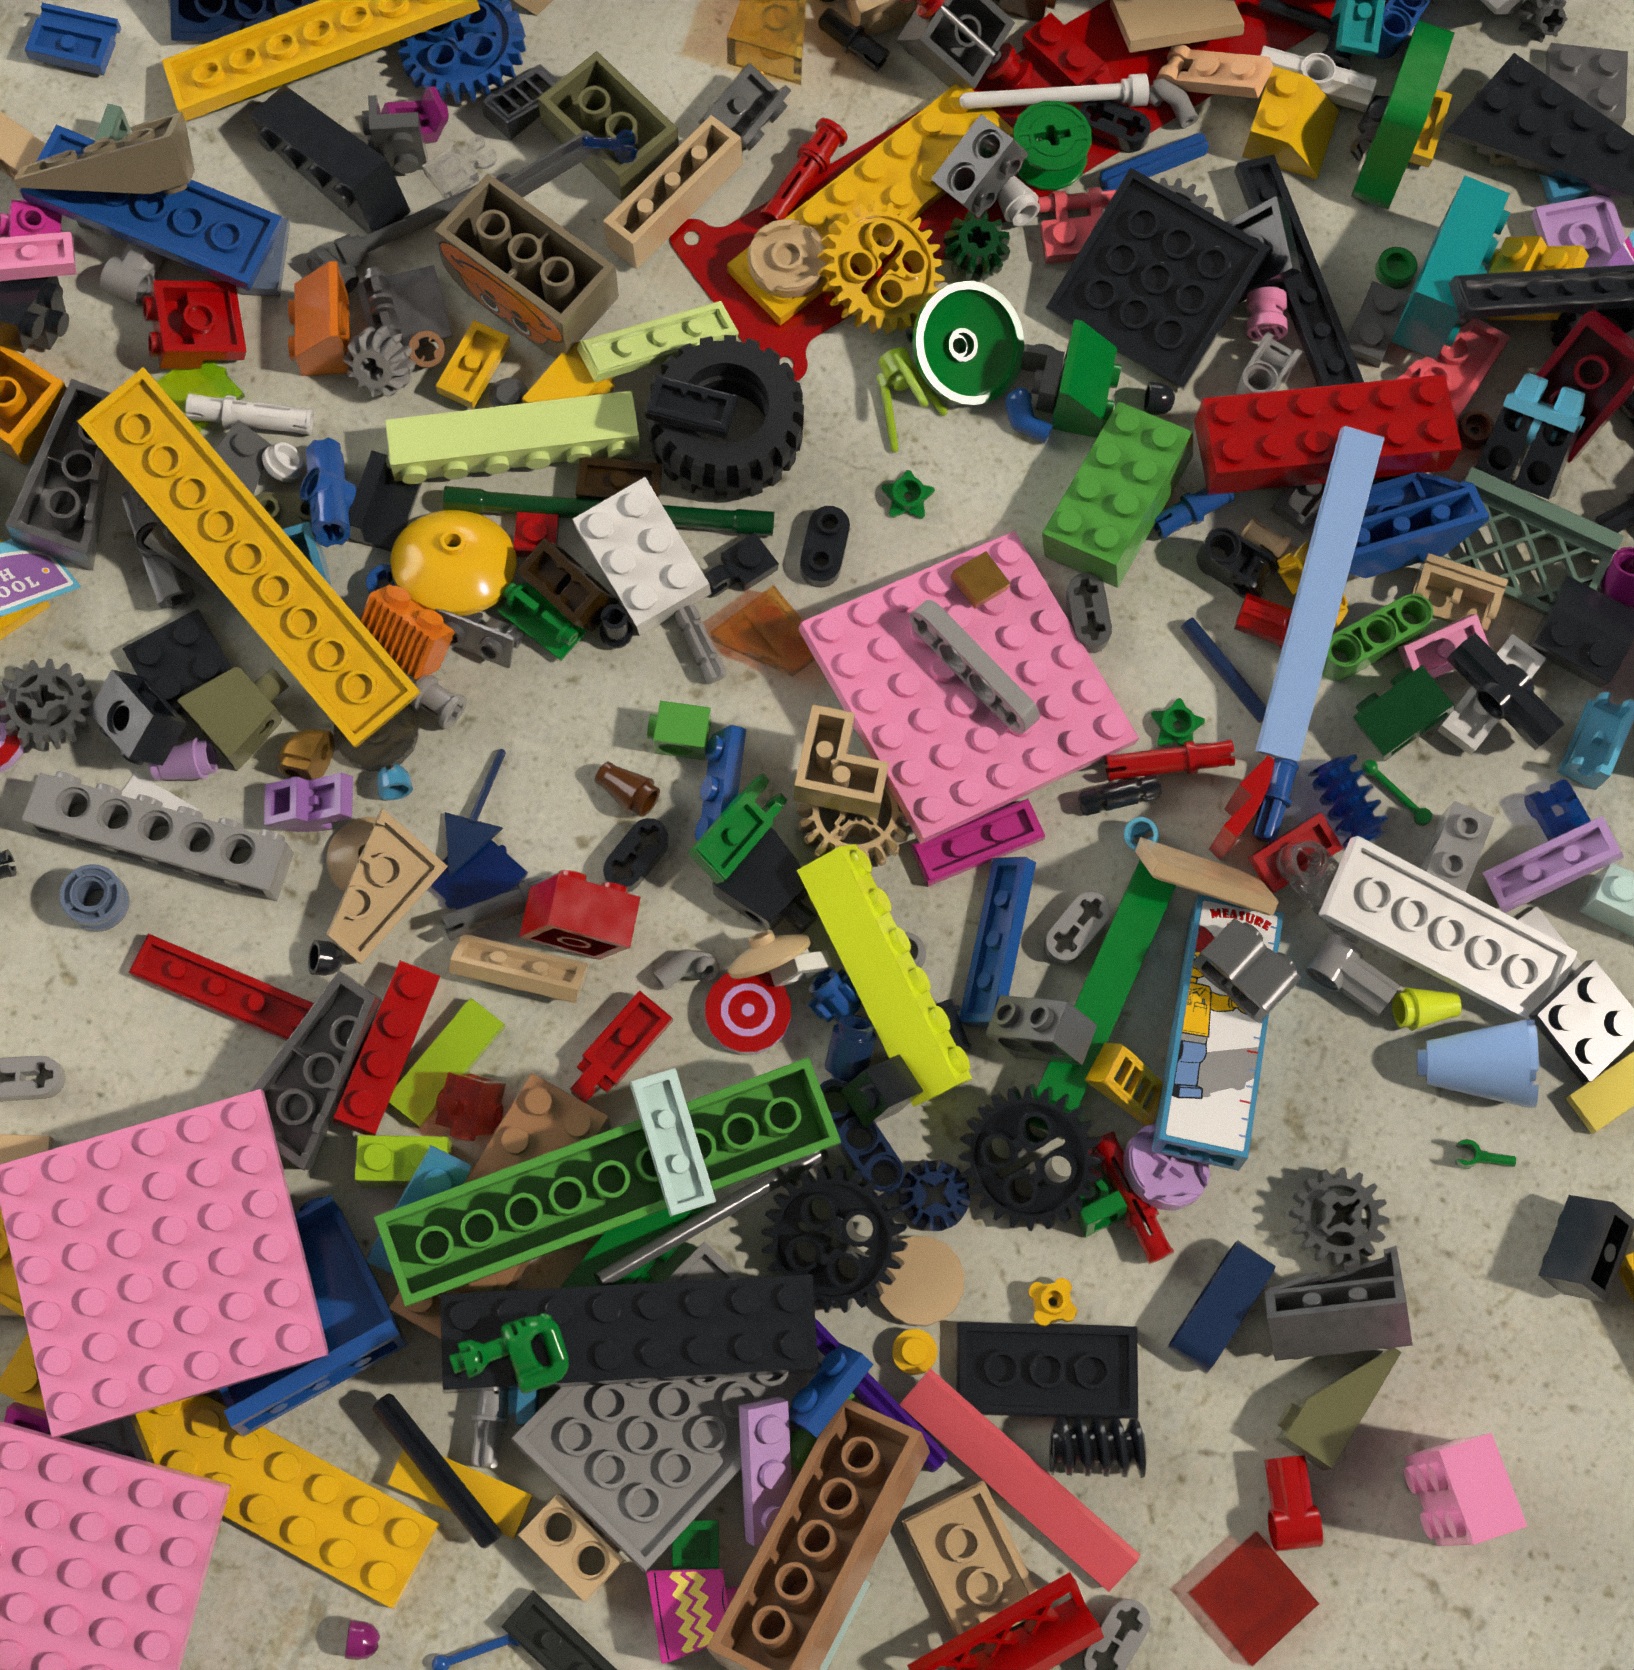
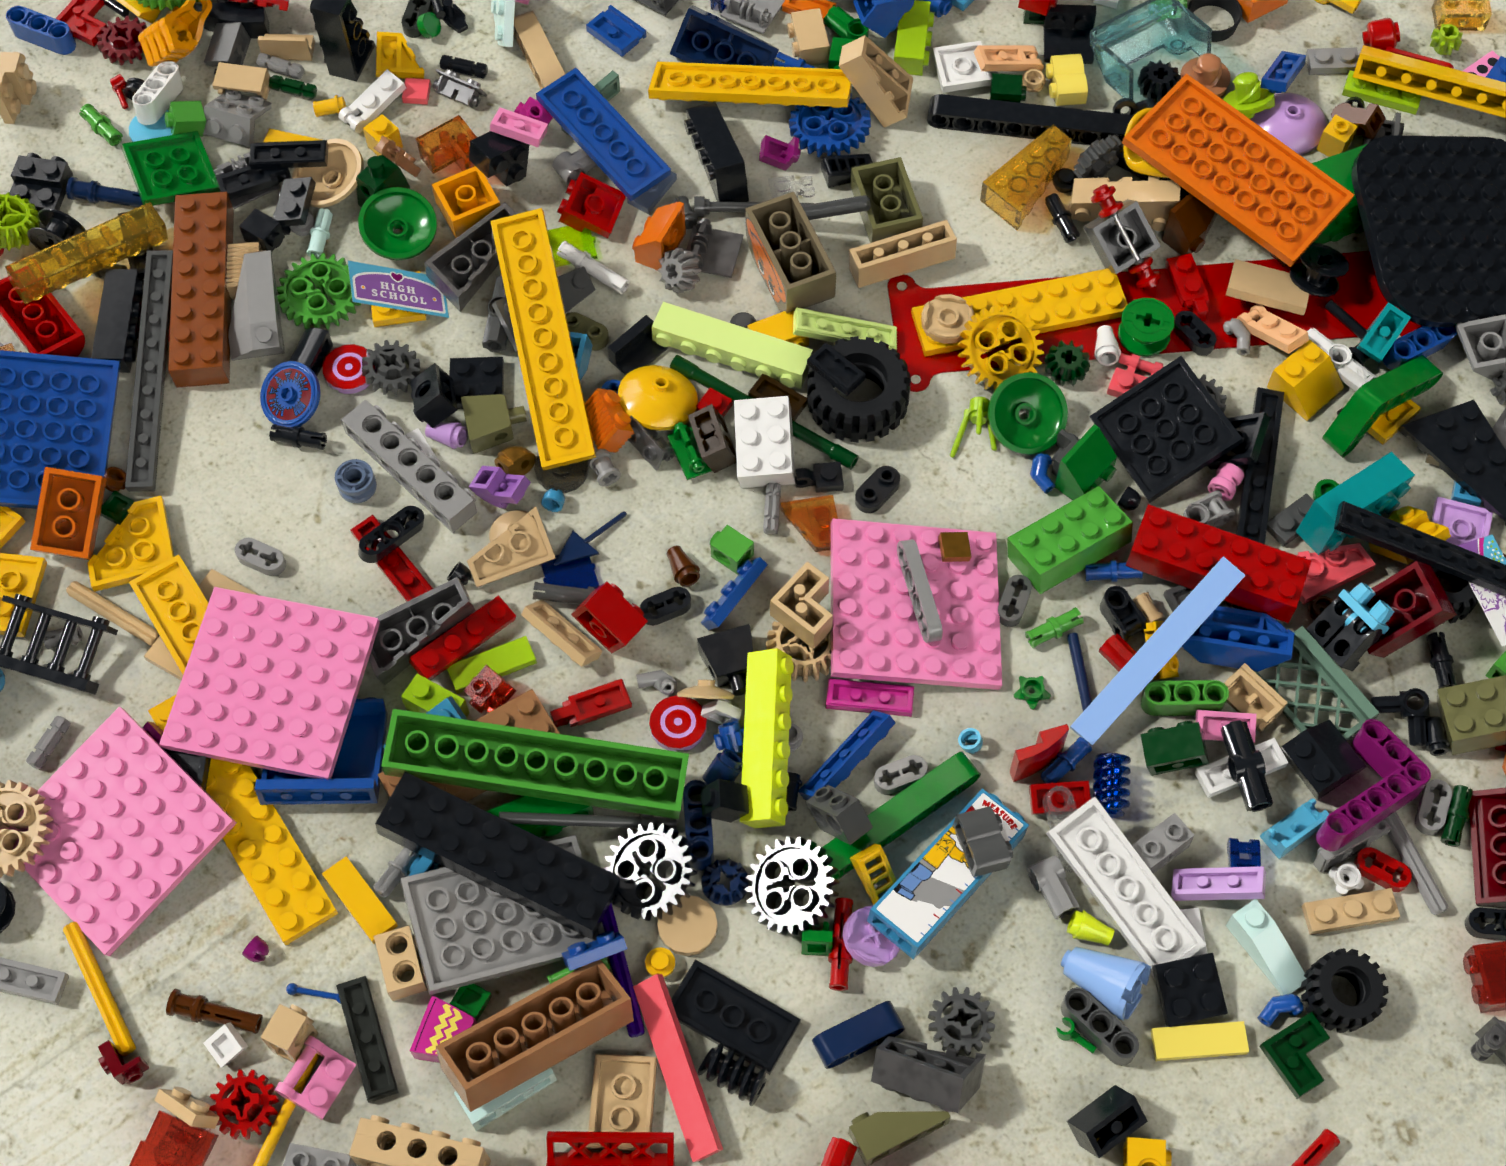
camera: 35 degrees right, 10 degrees down
(142, 162) = (609, 106): dark tan wedge -> none
(199, 968) = (387, 545): none -> black beam
(282, 462) = (595, 300): white plate -> none
(327, 492) = (608, 325): blue piece -> none
(395, 137) = (759, 156): dark grey bracket -> none
(437, 1471) = (351, 879): black axle -> none
(438, 353) = (706, 271): medium nougat bush -> none
(473, 364) = (733, 297): yellow plate -> none
(517, 1344) = (427, 819): green piece -> none
(615, 628) = (727, 474): black pin -> none
(623, 153) = (881, 210): clear blue hand -> none
(672, 1142) = (580, 756): light aqua plate -> none
(736, 831) = (726, 615): green hinge -> none
(748, 105) = (975, 226): dark grey bracket -> none
(764, 1464) = (536, 966): lavender plate -> none
(812, 160) = (996, 273): red pin -> none
(915, 488) = (947, 478): green plate -> none
(973, 161) = (1092, 317): dark grey brick -> none
(1043, 1311) = (757, 986): yellow plate -> none
(1119, 795) = (971, 712): black axle -> none
(1131, 91) = (1213, 316): white piece -> none
(1156, 160) = (1214, 365): blue axle -> none
(1161, 624) = (1054, 627): none -> bright green pin
(1170, 760) = (1013, 707): red pin -> none
(1206, 877) = (991, 779): tan tile -> none
(1422, 816) = (1155, 818): green hinge -> none
(1528, 1125) = (1104, 1041): none -> dark grey beam

